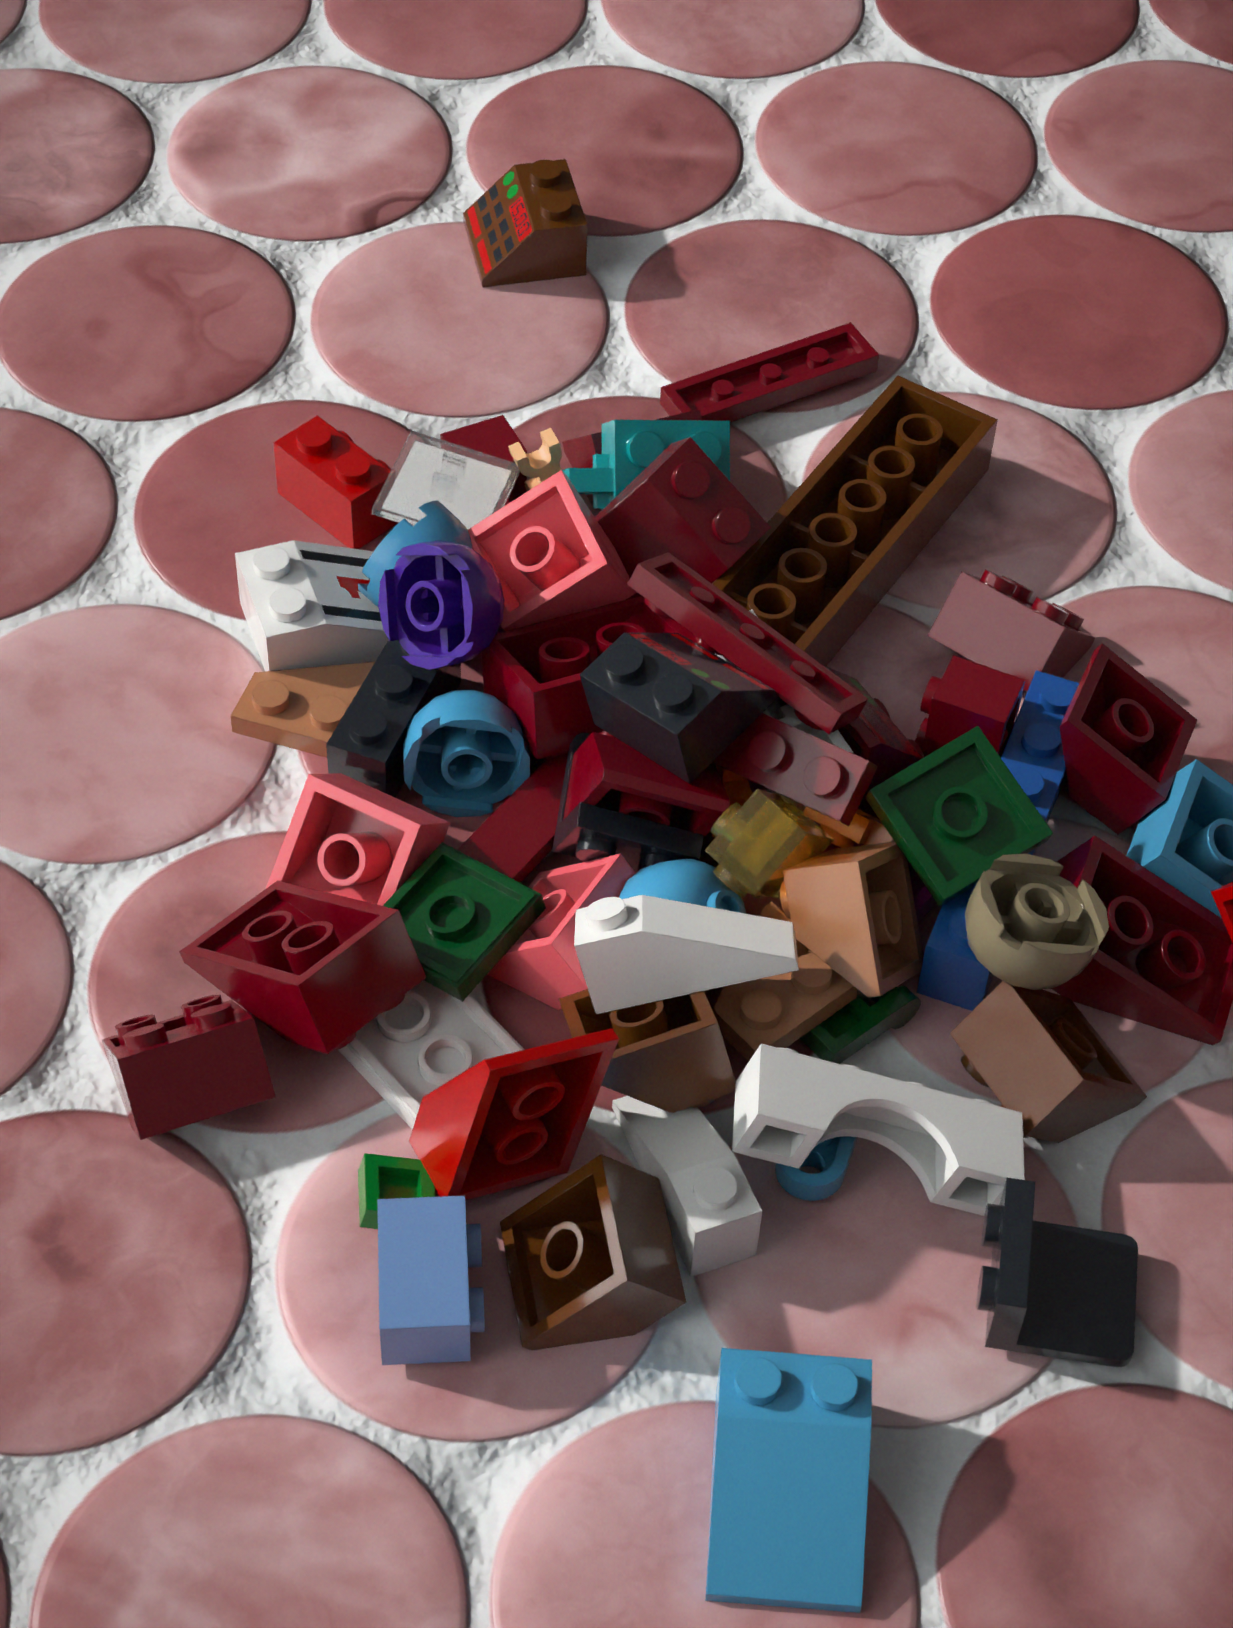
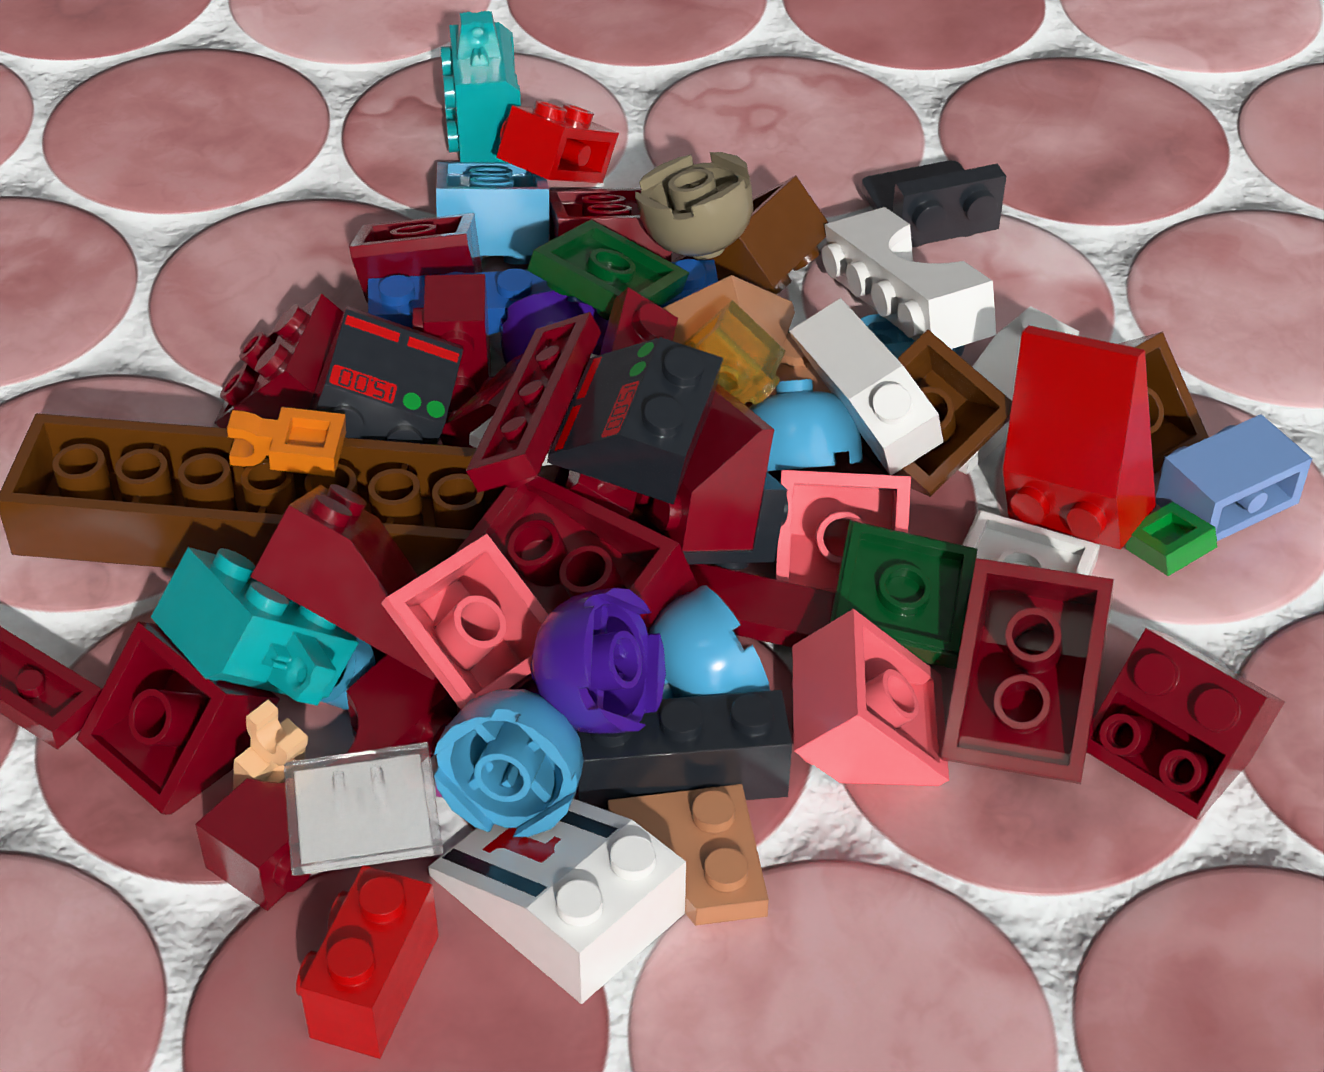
camera: 115 degrees left, 5 degrees down
(789, 1480) = (1175, 275): dark azure slope -> none
(844, 538) = (295, 442): none -> orange plate
(898, 629) = (387, 380): none -> black slope

